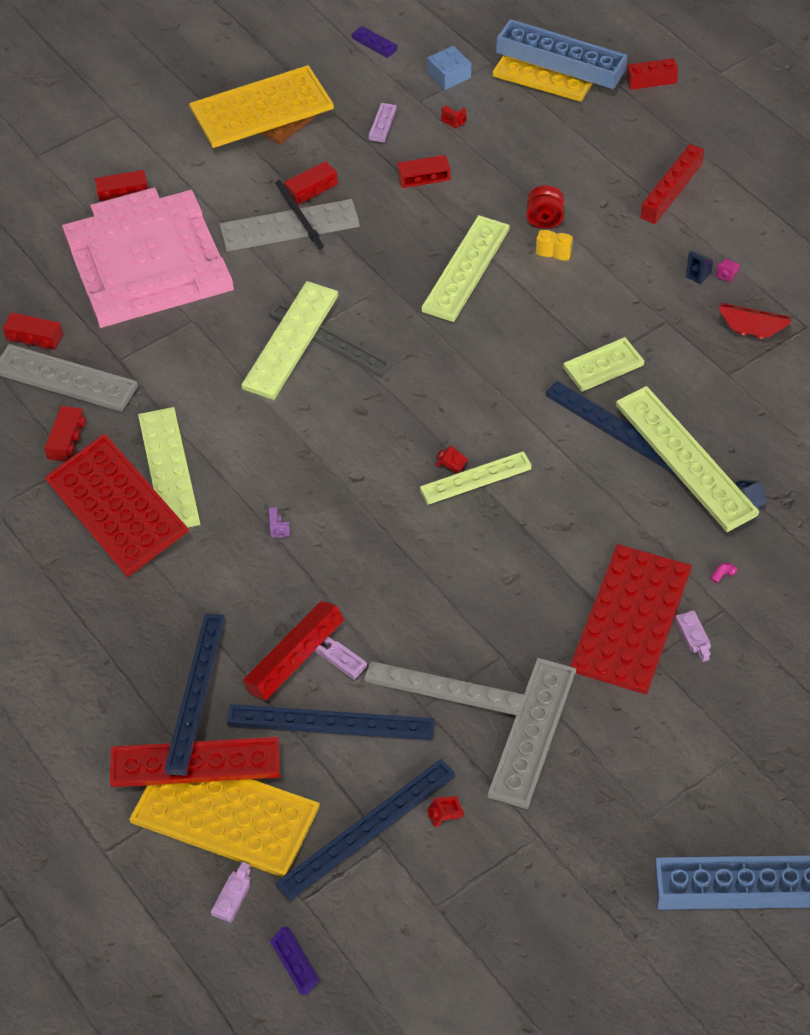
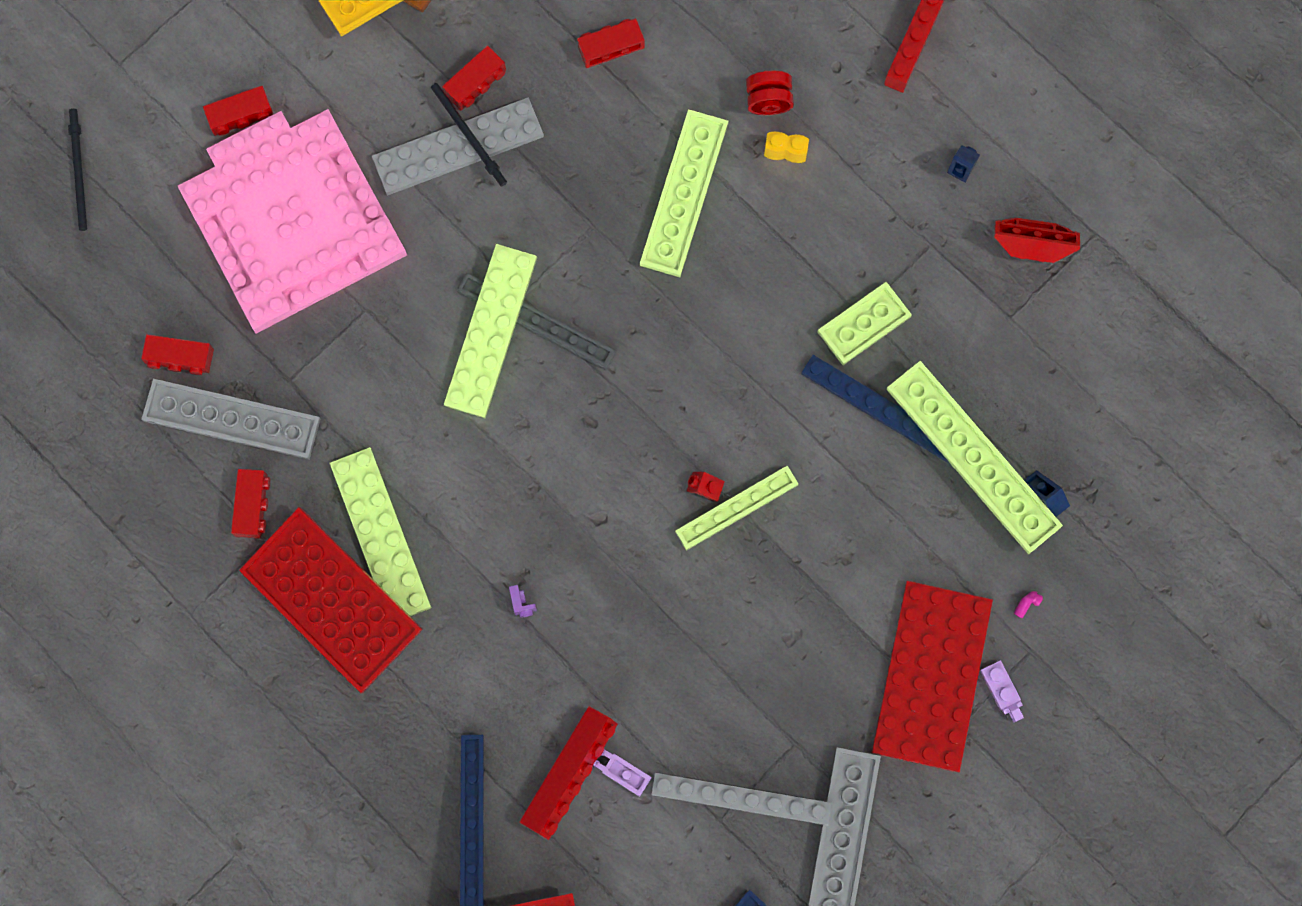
camera: 10 degrees left, 25 degrees up
(331, 722) = (623, 856): dark blue plate -> none
(727, 270) = (996, 159): dark pink bracket -> none

